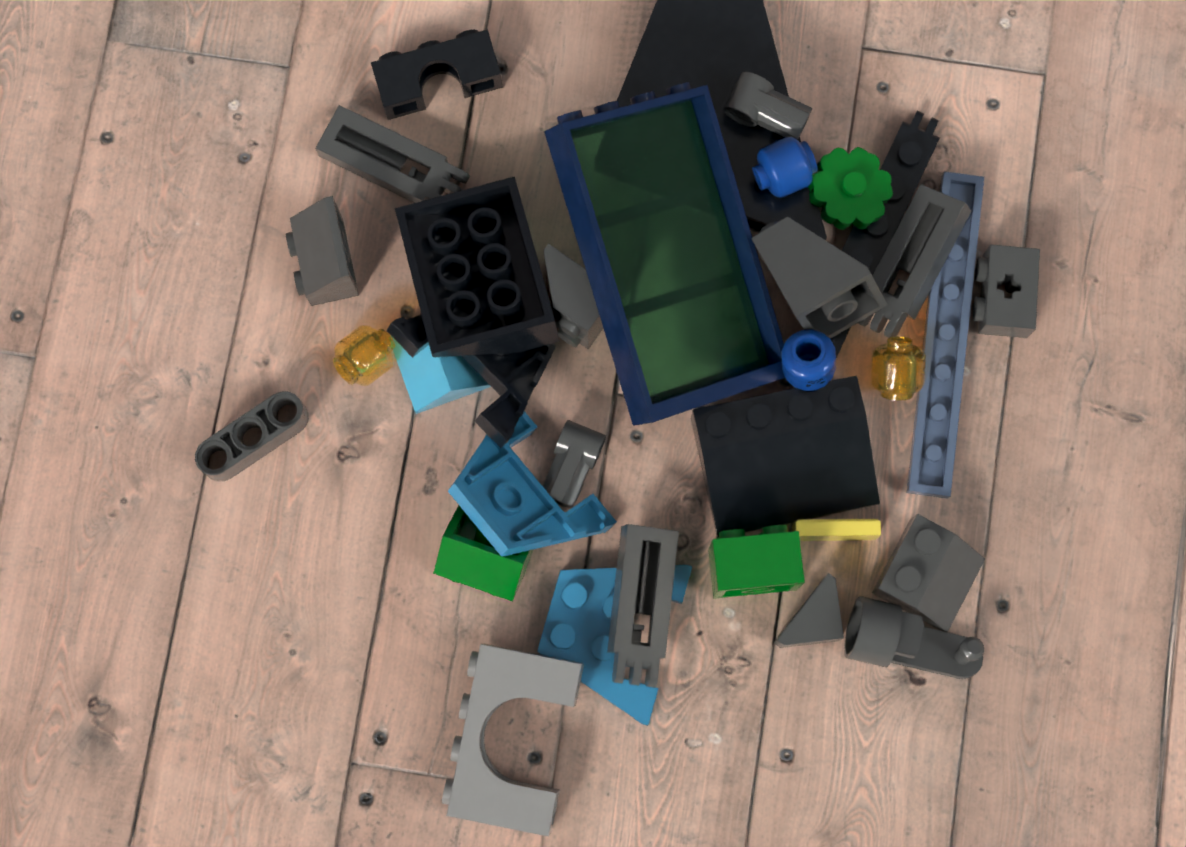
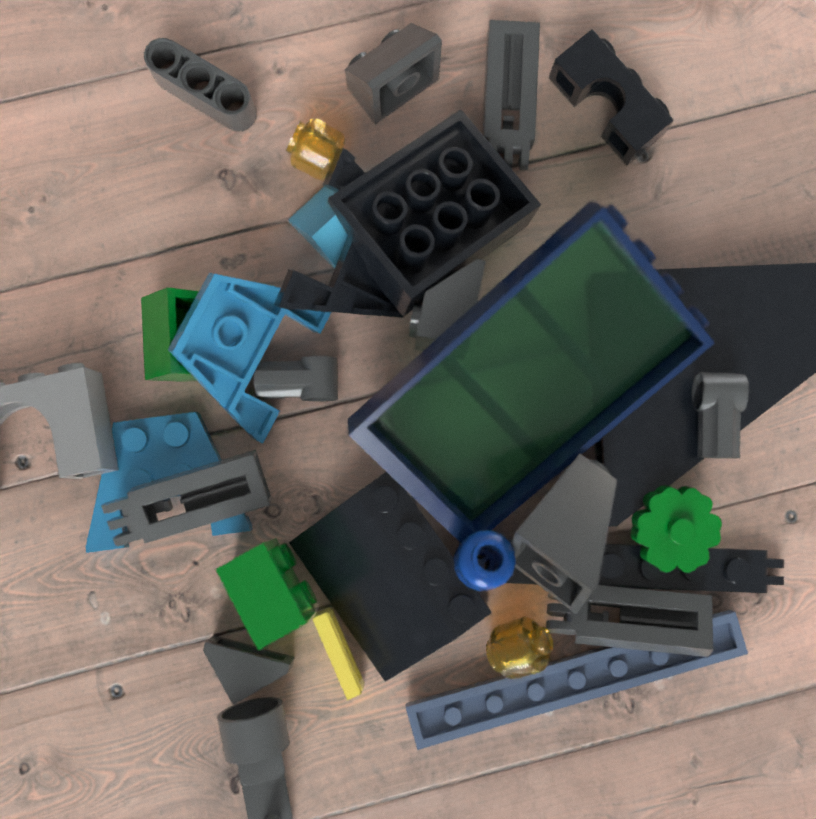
camera: 65 degrees right, 5 degrees up
(785, 167) = (667, 456): blue head -> none
(929, 572) = (334, 756): dark grey slope -> none
(1019, 272) = (665, 729): dark grey brick -> none

